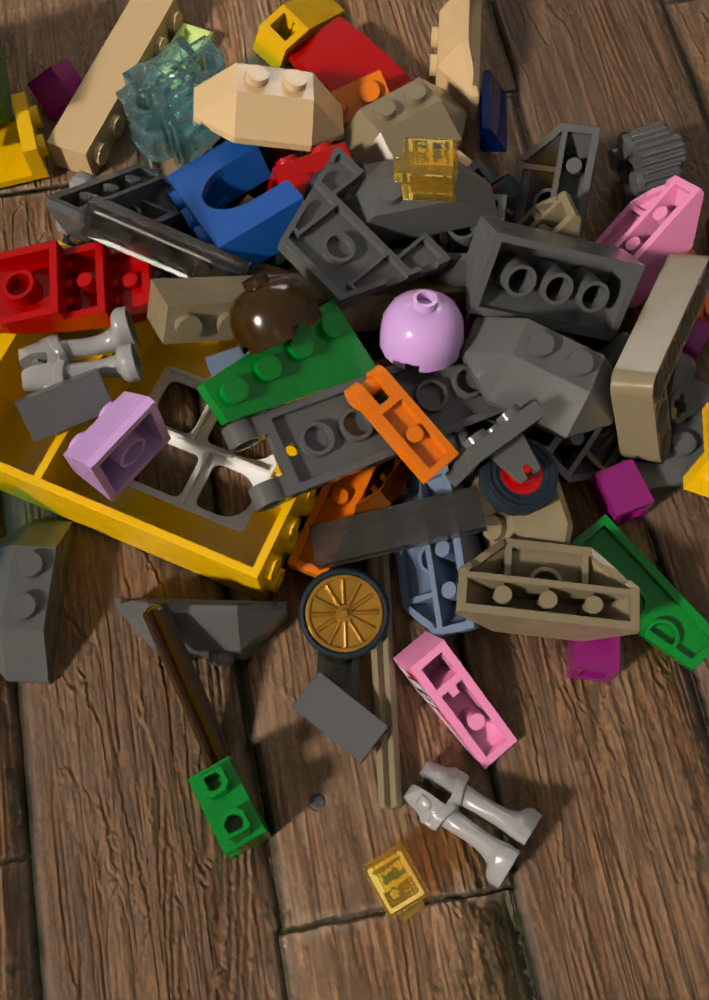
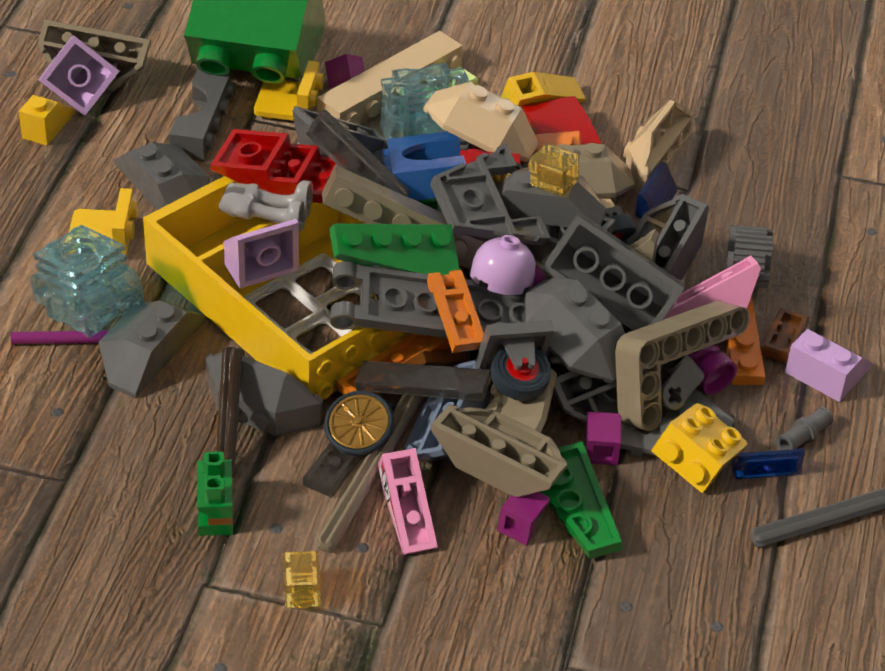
camera: 20 degrees right, 25 degrees down
(63, 404) = (235, 221): dark grey tile -> none
(270, 311) = (401, 203): dark brown cylinder -> none
(340, 717) = (320, 478): dark grey tile -> none
(446, 814) = (363, 555): light grey piece -> none

